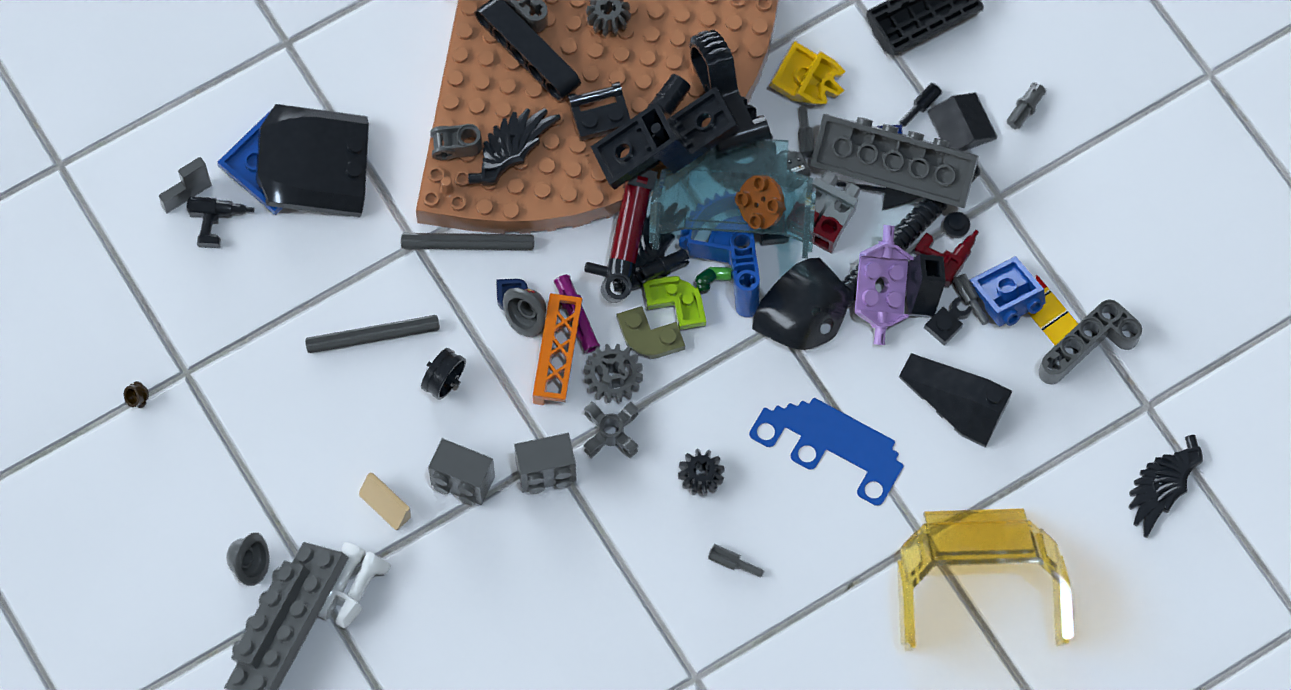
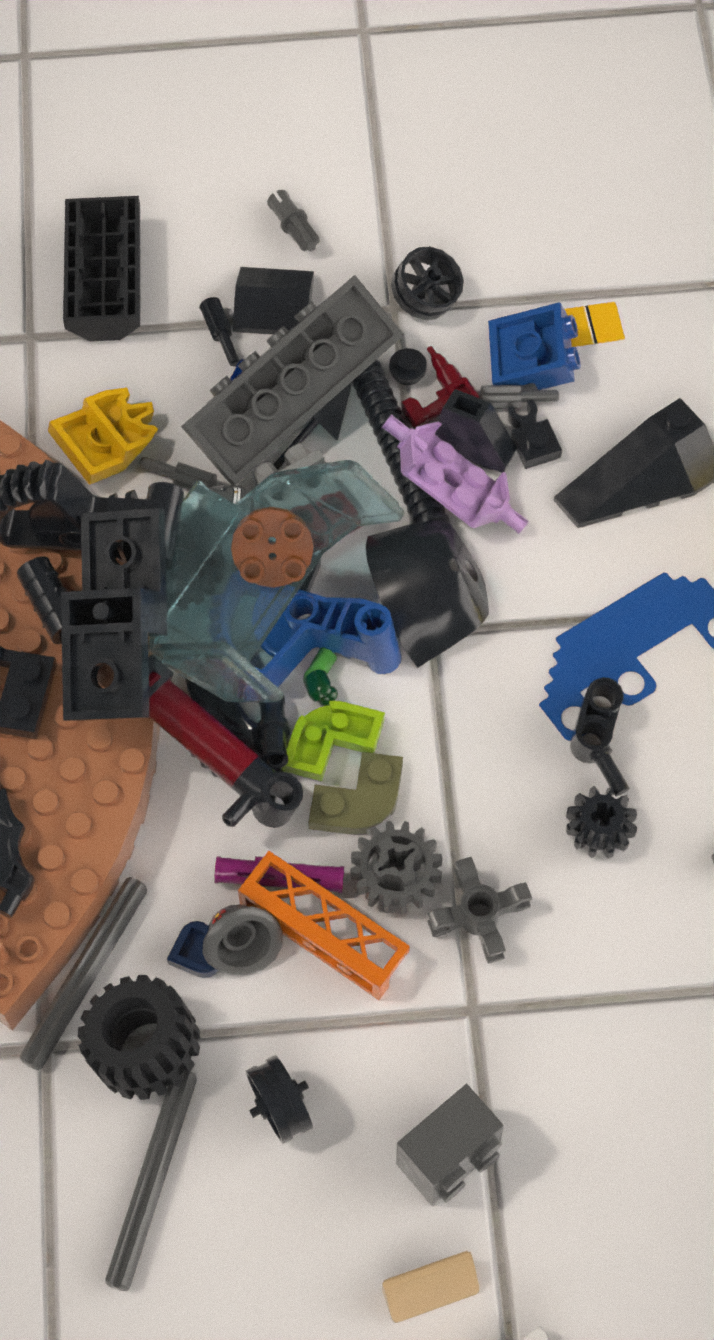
camera: 60 degrees left, 5 degrees down
(441, 302) = (117, 1016): none -> black tyre
(545, 463) = (492, 1021): dark grey brick -> none
(766, 445) = (600, 723): none -> black beam
(1020, 206) = (427, 283): none -> black wheel
(1085, 344) = (630, 272): dark grey beam -> none

